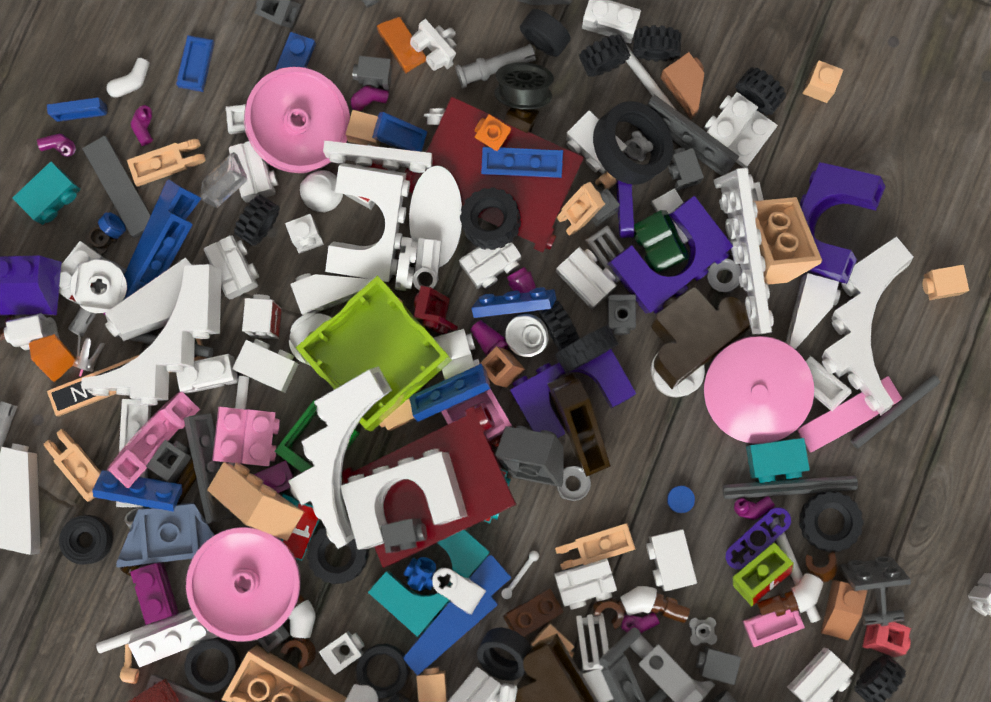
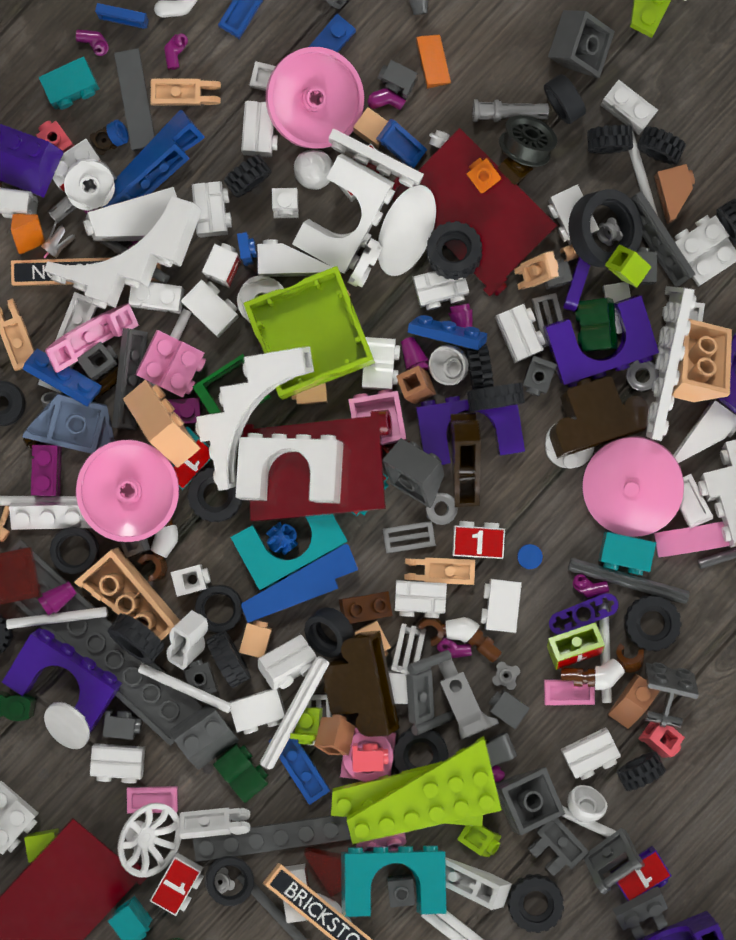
camera: 20 degrees right, 5 degrees up
(42, 246) = (49, 129): none -> coral brick
(223, 181) = (230, 129): clear slope -> none
(281, 292) = (247, 248): none -> blue plate
(403, 534) = (278, 499): dark grey brick -> none
(427, 260) = (384, 267): white piece -> none
(432, 310) = (373, 313): dark red bracket -> none
(438, 41) = (466, 71): white hips -> none
(449, 392) = (363, 391): blue plate -> none
(462, 591) = (310, 566): white piece -> none
(507, 592) = (349, 582): white hinge -> none
(522, 162) = (501, 210): blue plate -> none
(530, 535) = (430, 534): none -> light grey tile
(623, 503) = (478, 541): none -> red brick
(670, 170) = (628, 266): none -> lime brick

